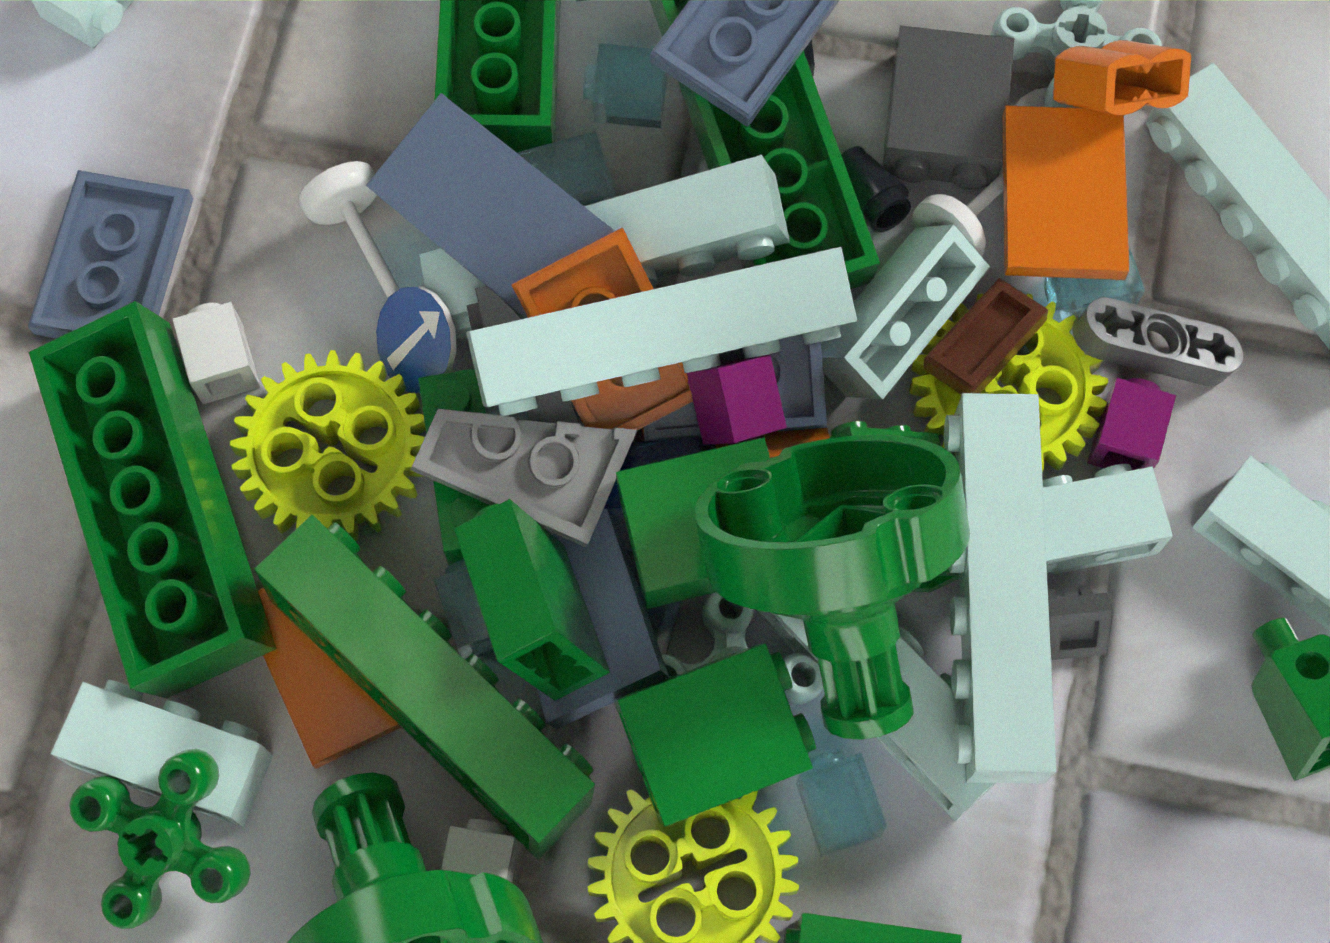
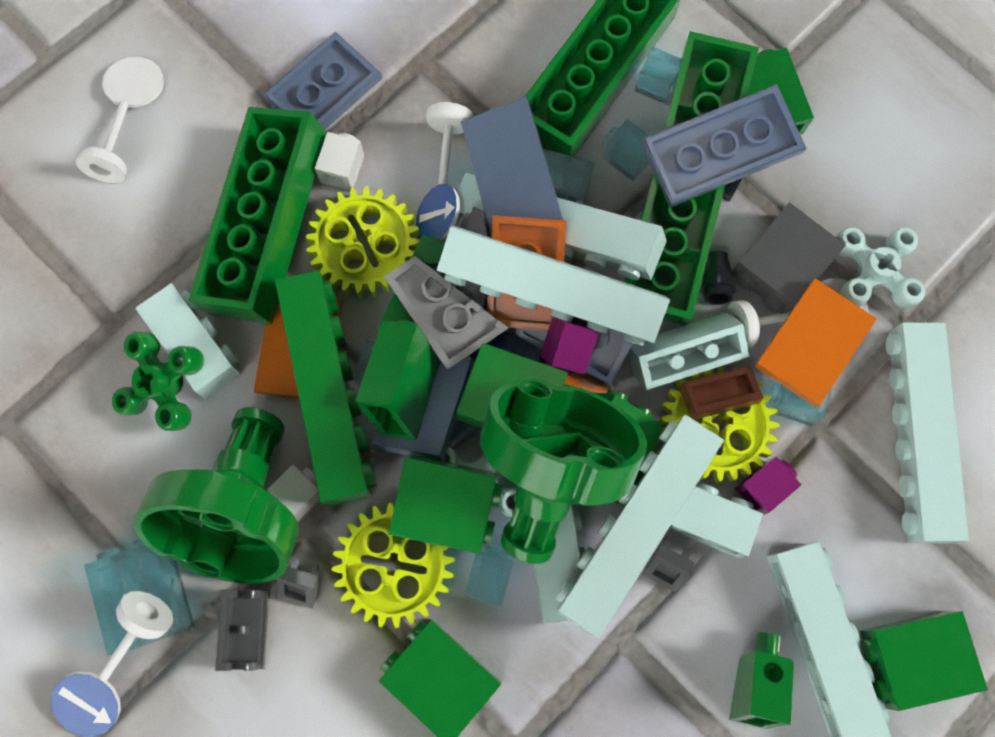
camera: 30 degrees right, 5 degrees up
(1121, 77) = (887, 300): orange brick -> none
(1135, 351) = (827, 452): dark grey beam -> none

